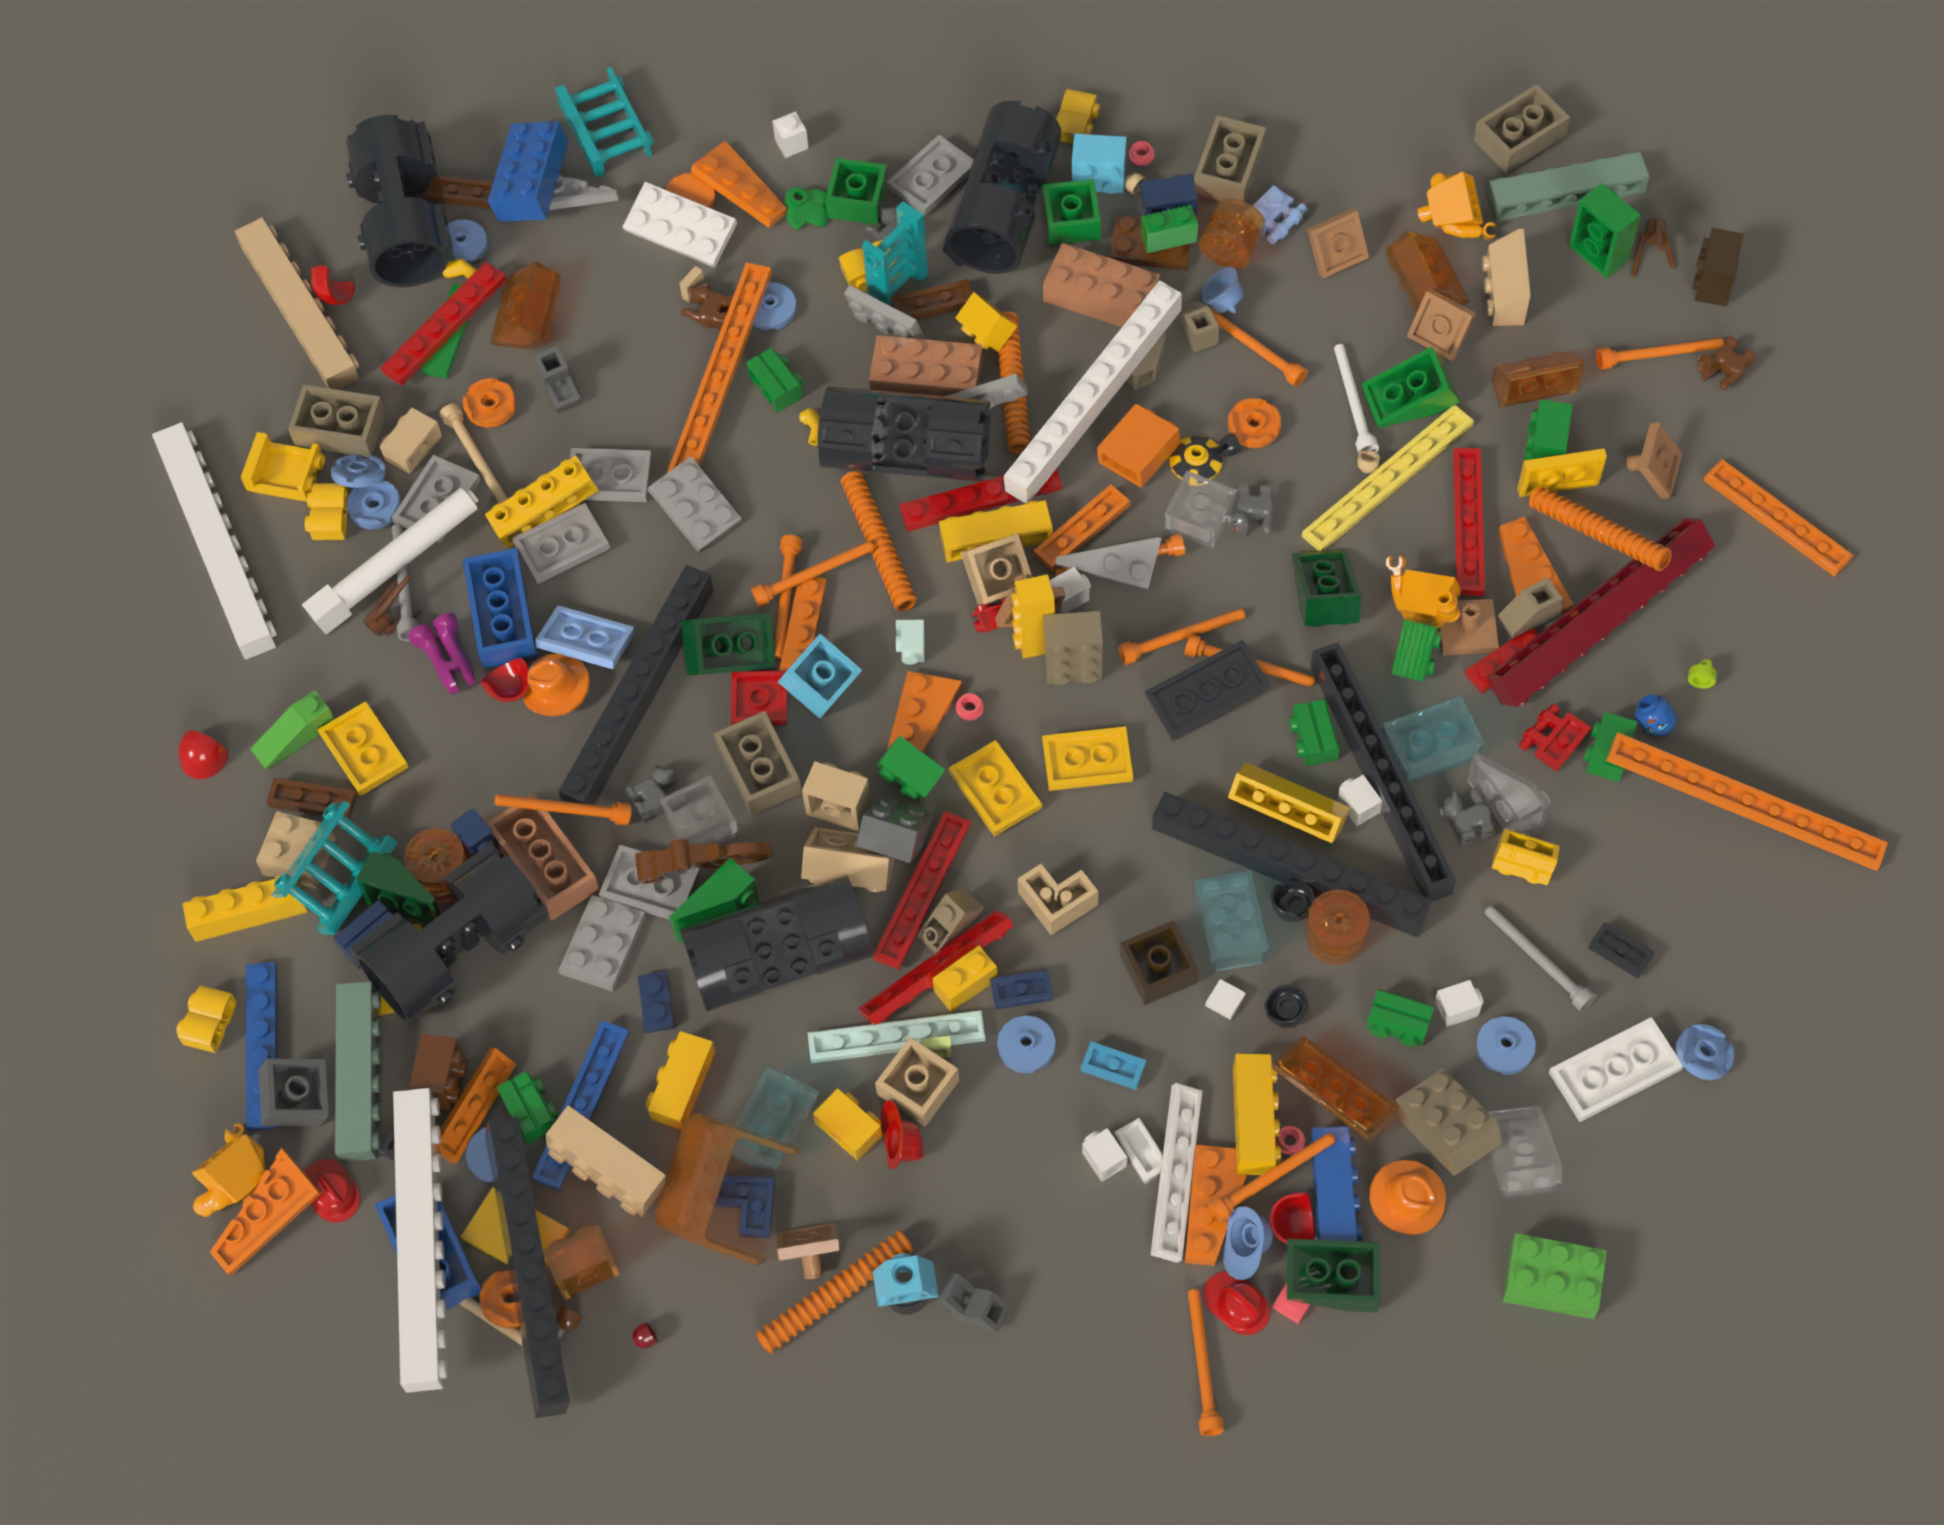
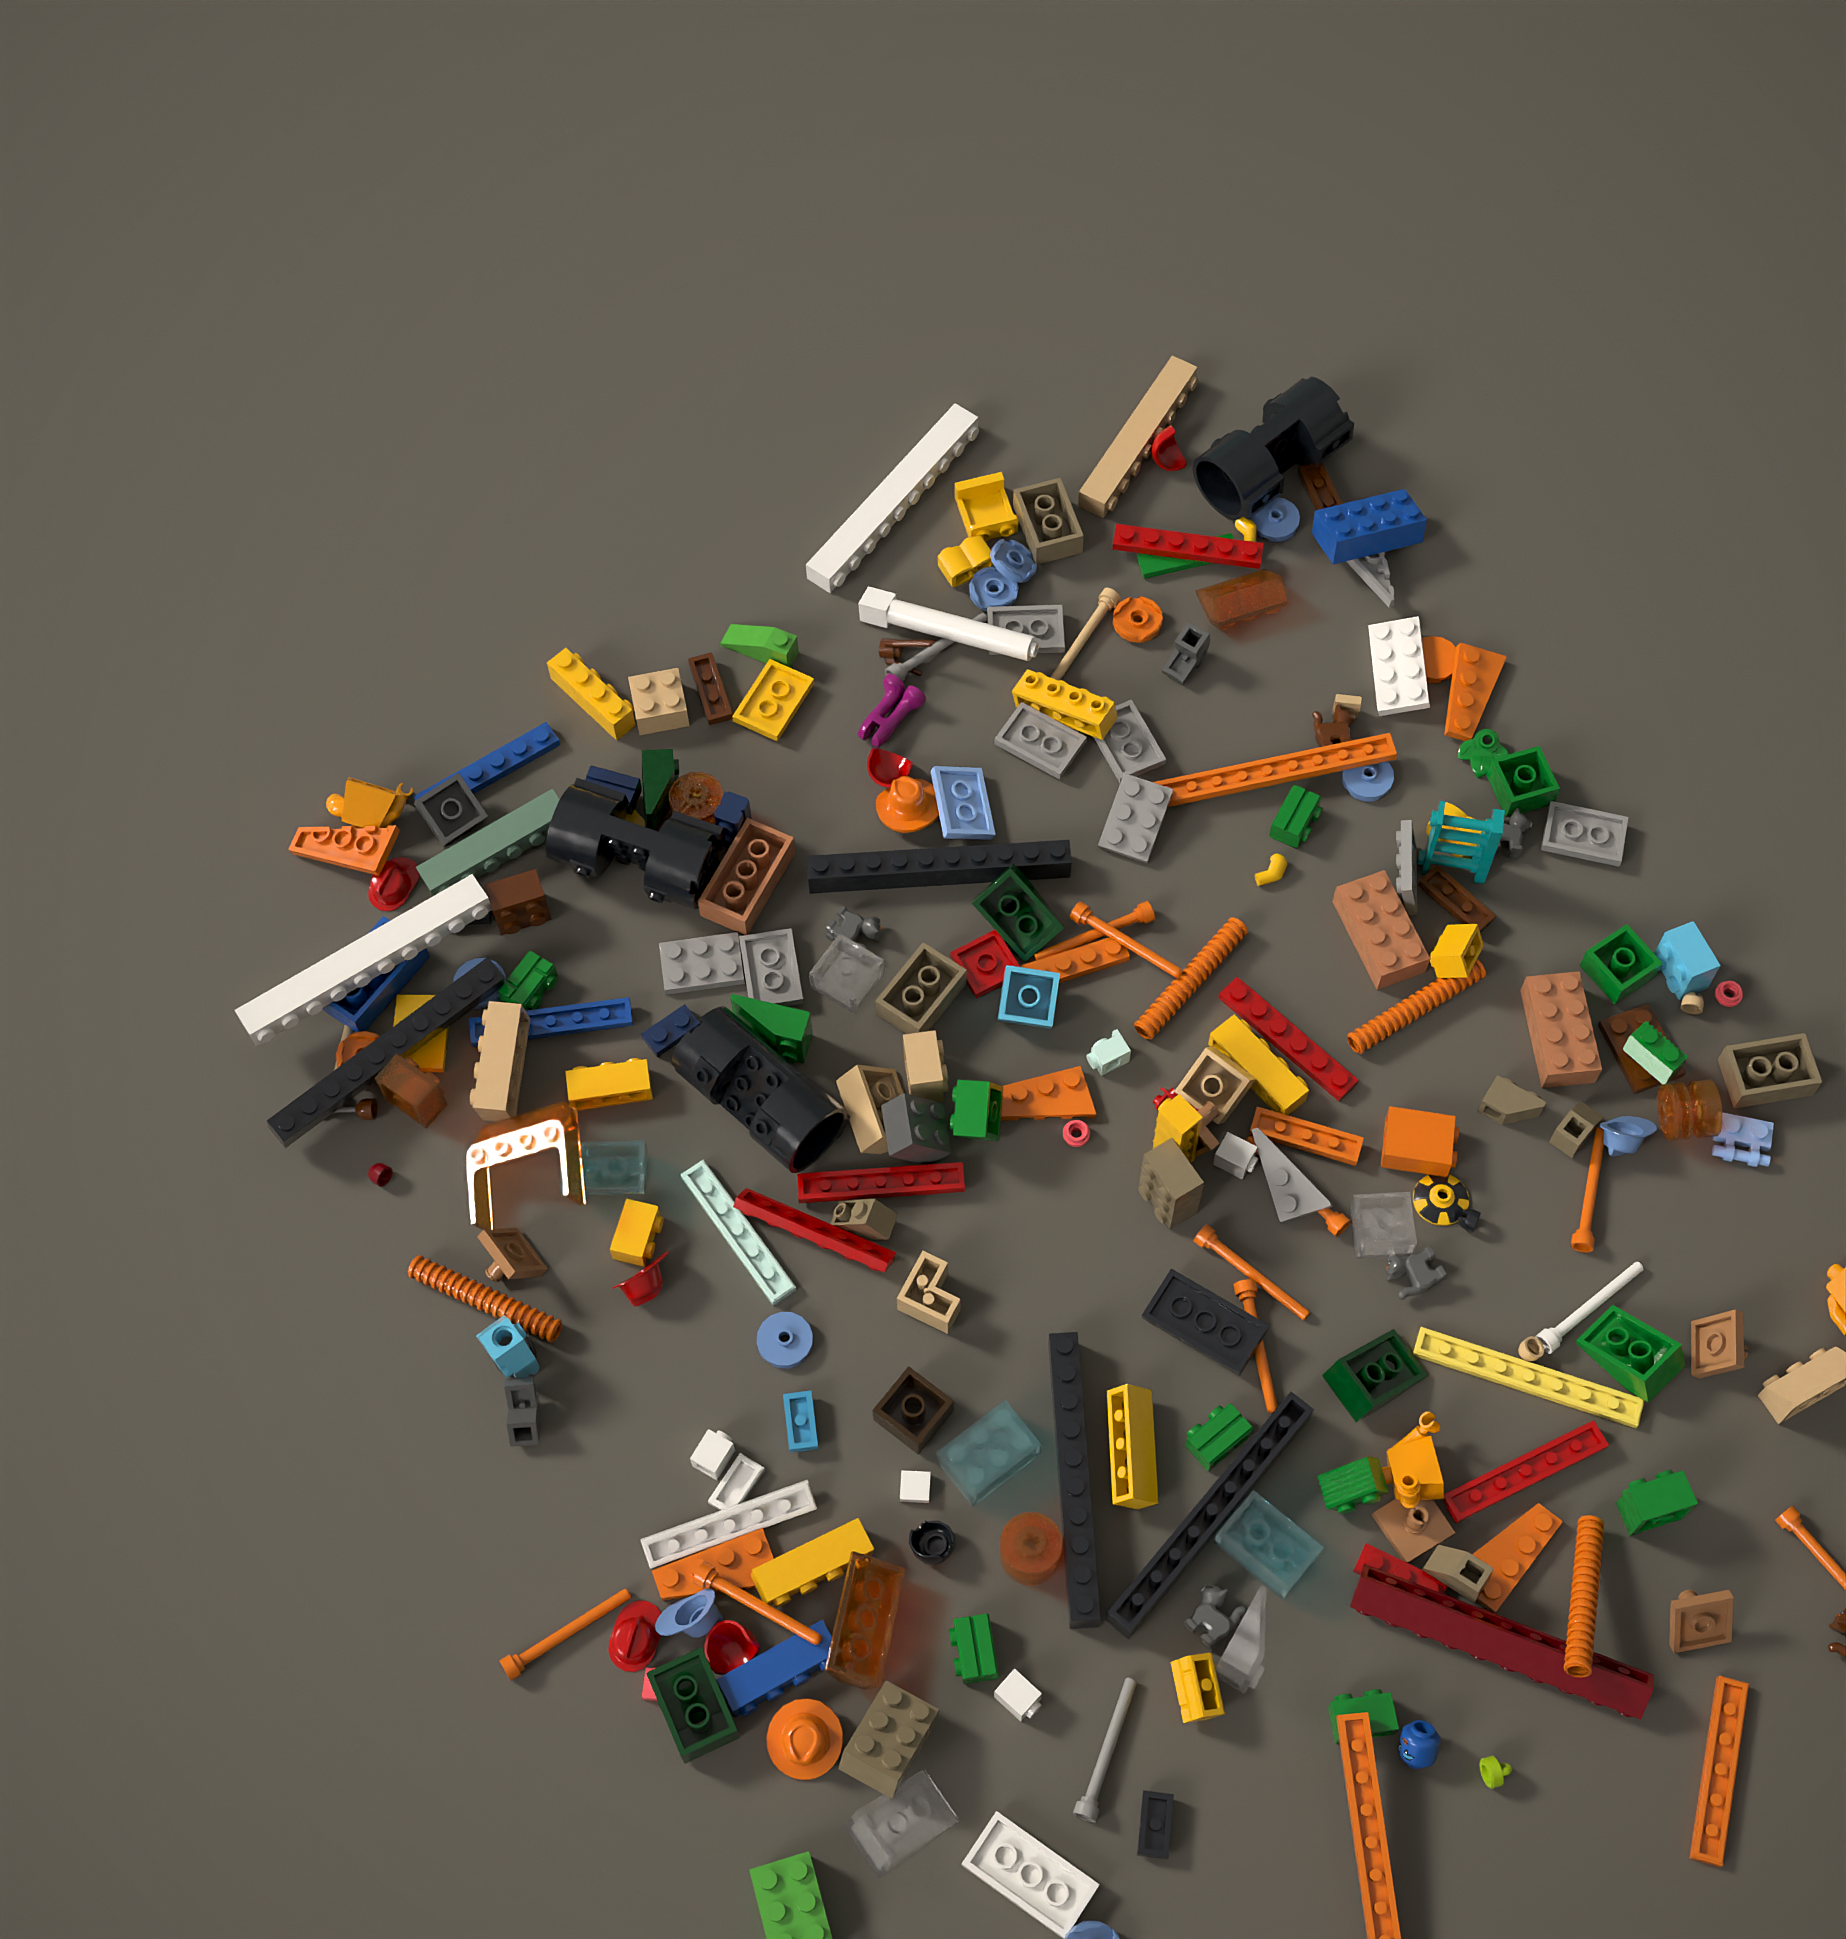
camera: 60 degrees right, 0 degrees up
(201, 755) = (702, 594): red helmet -> none
(207, 1019) = (486, 720): yellow brick -> none
(347, 893) = (615, 758): teal fence -> none
(410, 440) = (1065, 582): tan brick -> none
(473, 1104) = (509, 943): orange plate -> none
(499, 607) = (950, 726): blue brick -> none
(588, 139) = (1448, 537): teal fence -> none
(618, 812) = (819, 911): orange piece -> none
(682, 855) = (785, 971): reddish brown piece -> none
(755, 1198) = (535, 1196): dark blue plate -> none
(790, 134) = (1545, 701): white brick -> none
(904, 433) = (1297, 941): black cylinder -> none
(917, 1081) = (698, 1267): tan brick -> none
(939, 1045) = (740, 1267): yellowish green tile -> none
(964, 979) = (814, 1258): yellow brick -> none
(995, 788) = (1009, 1192): yellow plate -> none
(996, 391) = (1382, 988): light grey plate -> none
(1001, 191) = (1601, 893): black cylinder -> none
(1021, 989) = (831, 1309): dark blue plate -> none
(1077, 114) = (1726, 919): yellow brick -> none
(1087, 758) = (1081, 1254): yellow plate -> none
(1093, 392) = (1441, 1073): white brick -> none
(1168, 194) = (1696, 1038): dark blue brick -> none
(1254, 412) = (1515, 1219): orange plate -> none
(1290, 1132) = (804, 1600): coral plate -> none
(1292, 900) = (1038, 1495): black hair -> none
(1338, 243) = (1744, 1208): medium nougat tile -> none
(1361, 799) = (1173, 1507): white brick -> none
(1424, 266) = (1772, 1304): clear orange slope -> none
(1501, 1058) = (1002, 1776): medium blue plate -> none
(1537, 378) = (1720, 1461): clear orange slope -> none
(1561, 741) = (1340, 1667): red plate -> none
(1562, 472) = (1626, 1532): yellow tile -> none

